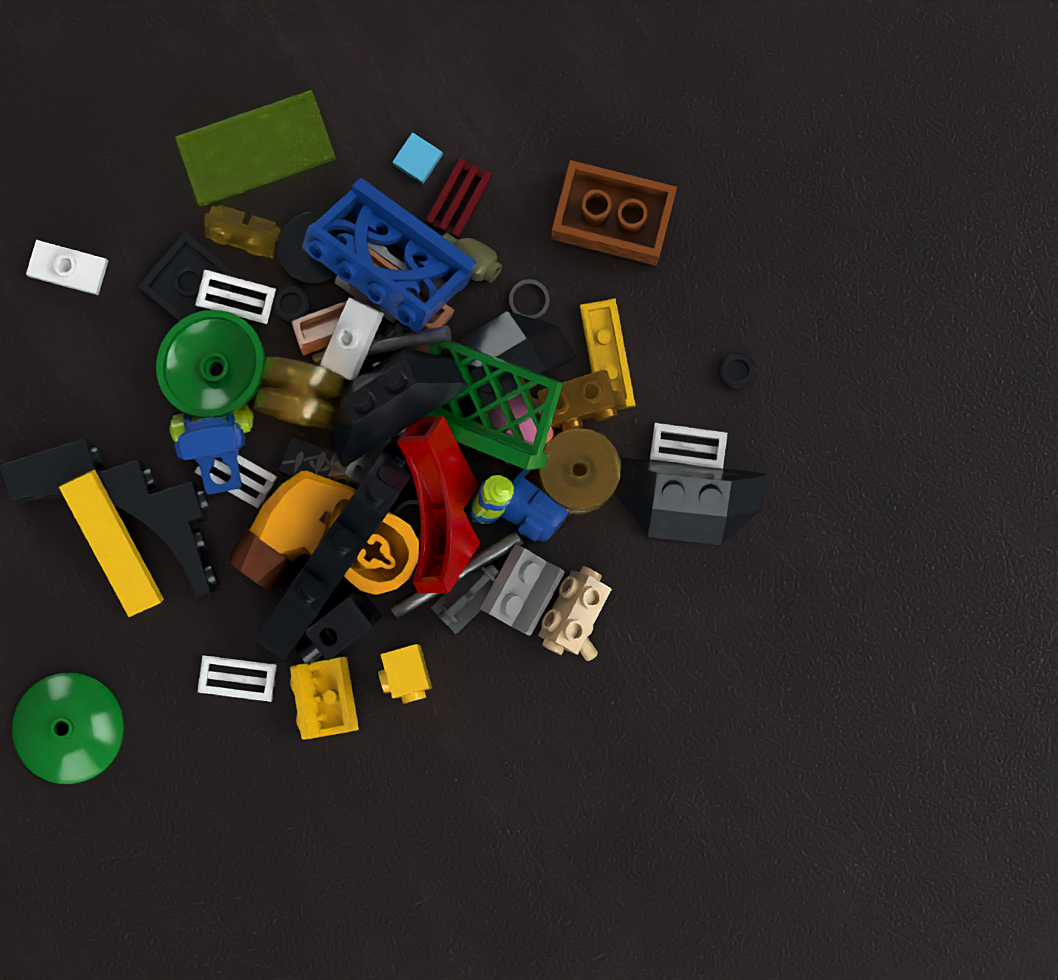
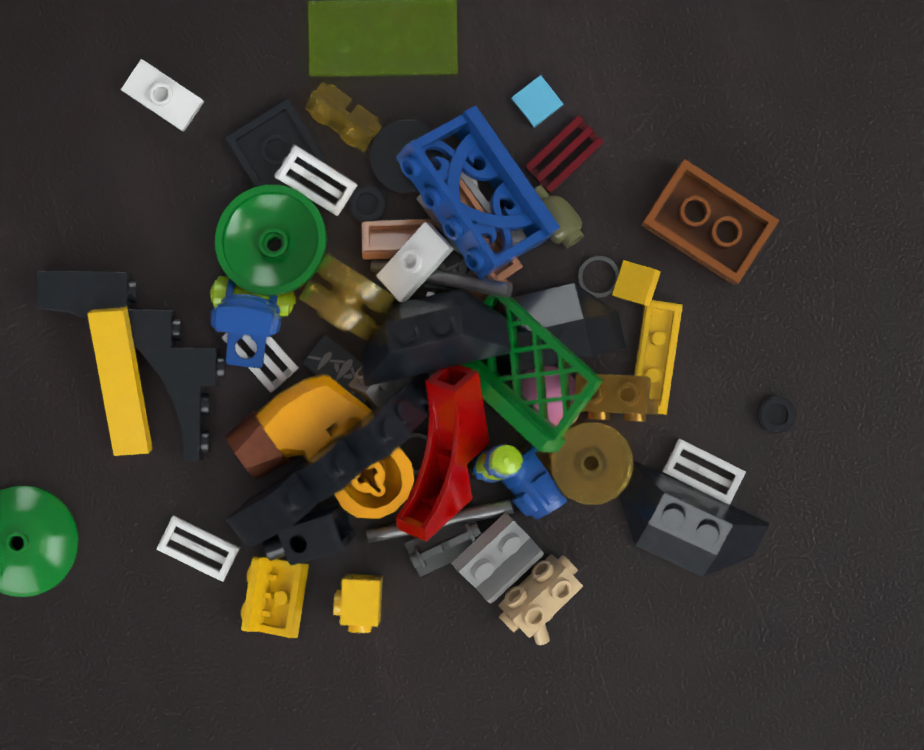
camera: 20 degrees right, 5 degrees up
(566, 293) = (636, 283): none -> yellow tile

